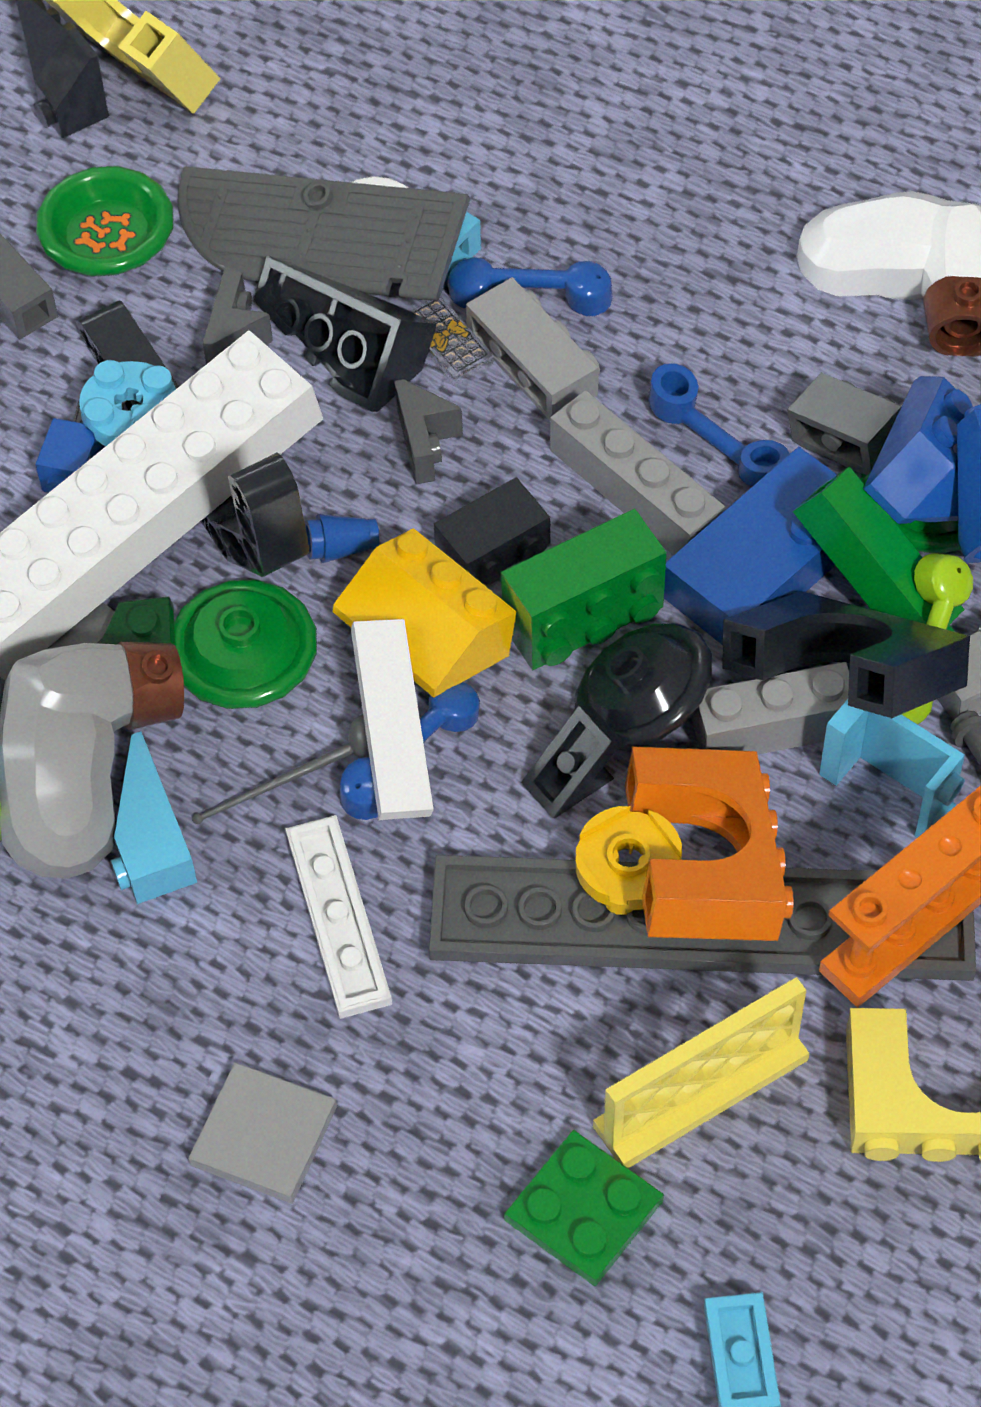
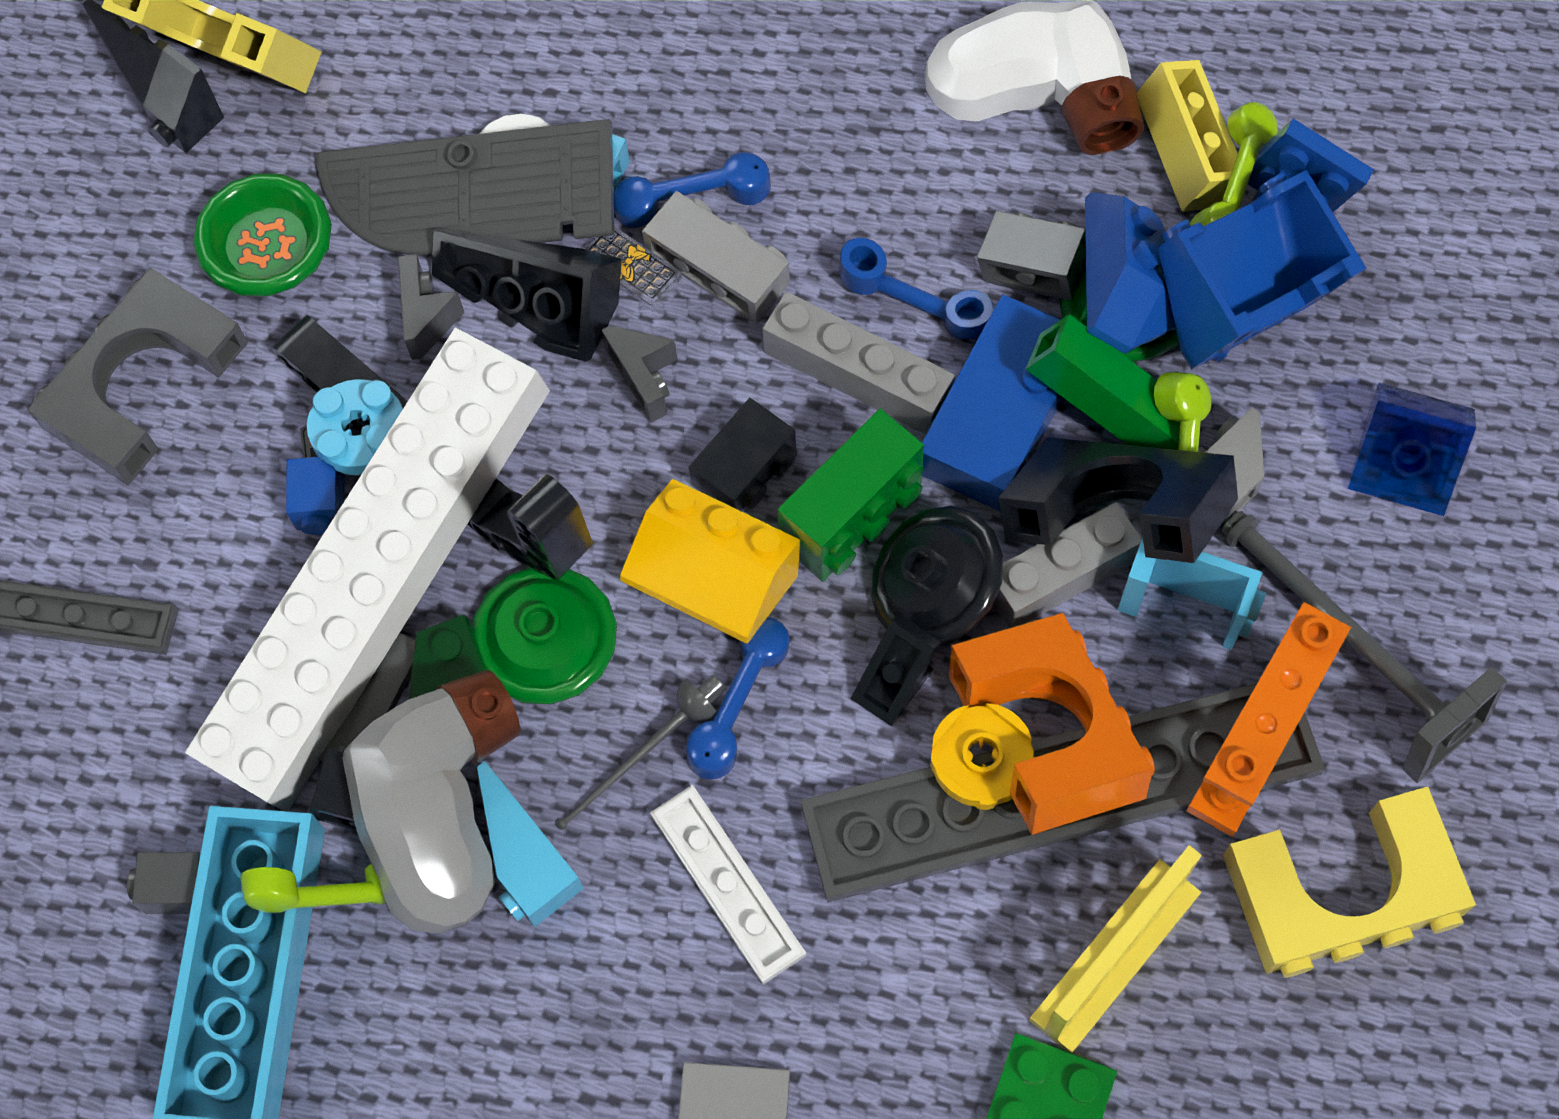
camera: 15 degrees left, 10 degrees up
(340, 536) = (604, 498): blue cone -> none
(391, 719) = (718, 680): white tile -> none

